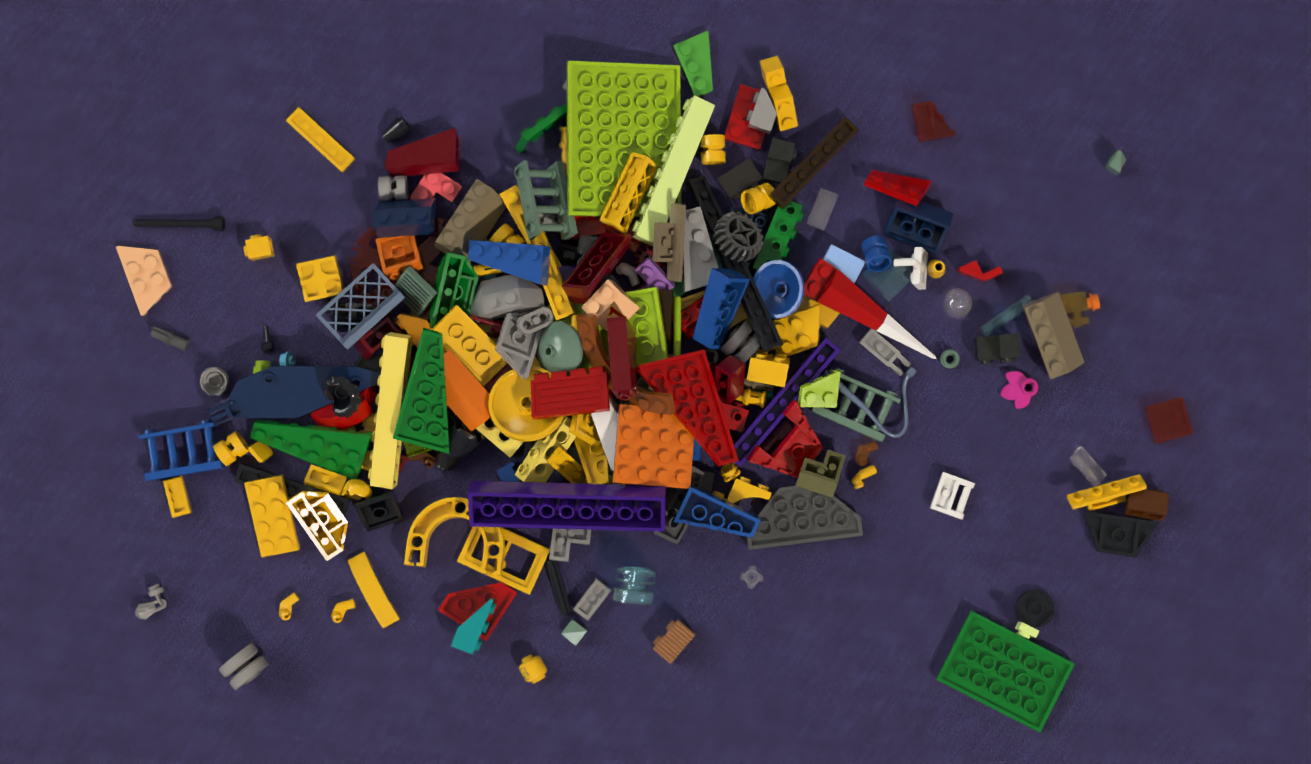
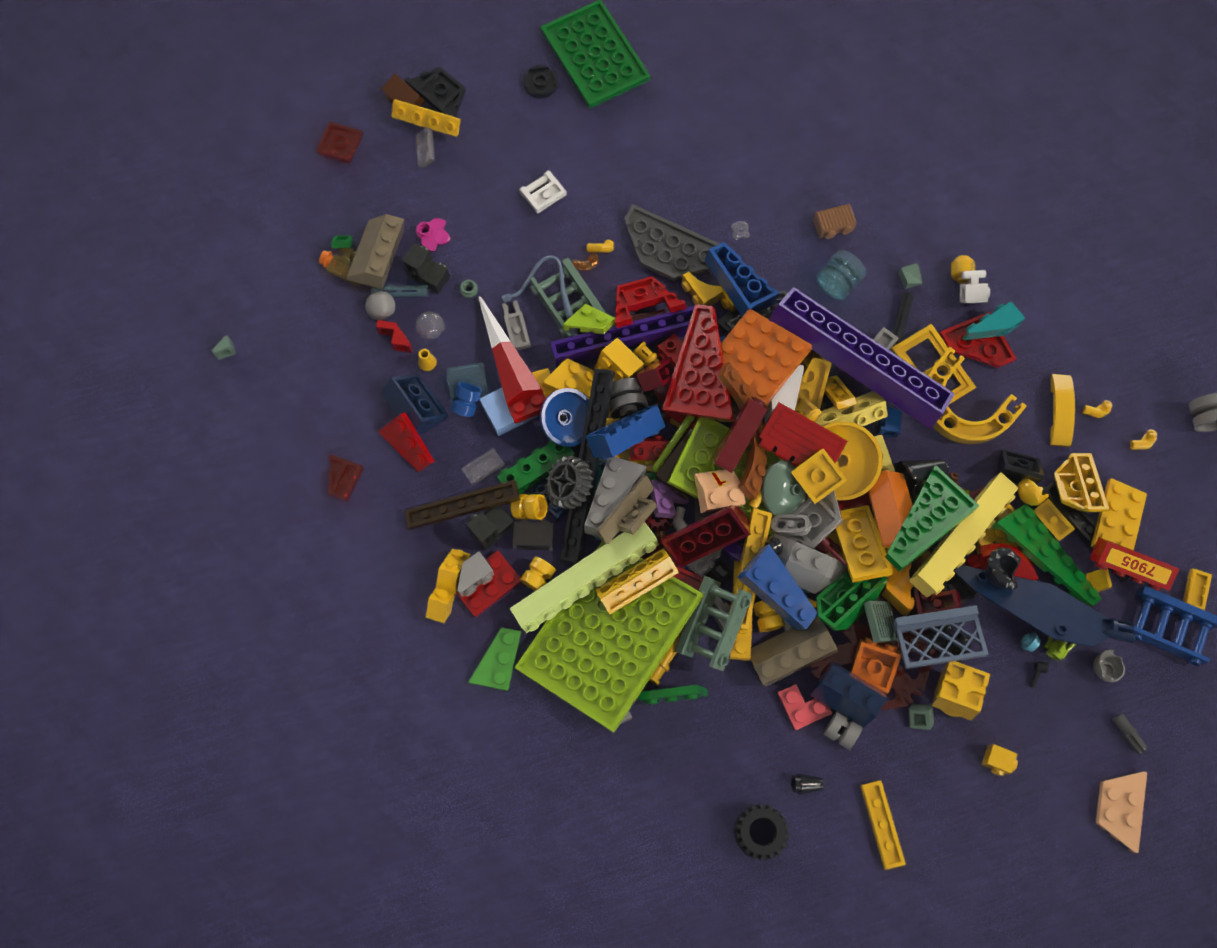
camera: 150 degrees left, 15 degrees down
(216, 223) = (1027, 810): black piece -> none
(226, 453) = (1126, 598): yellow wheel -> none
(240, 477) = (1134, 564): none -> brick
(339, 242) = (921, 716): none -> sand green slope
(403, 54) = (779, 826): none -> black tyre
(426, 156) = (793, 738): dark red slope -> none
(510, 651) = (974, 291): none -> white brick
(537, 292) = (776, 544): none -> black plate
(537, 371) = (818, 476): none -> yellow plate
(592, 599) = (880, 290): light grey plate -> none
(821, 476) = (632, 258): olive brick -> none
(919, 263) = (441, 368): white plate -> none
(1013, 290) = (380, 305): none -> light grey hair
(1026, 631) = (559, 63): yellowish green plate -> none
(1091, 326) = (342, 241): none -> green tile

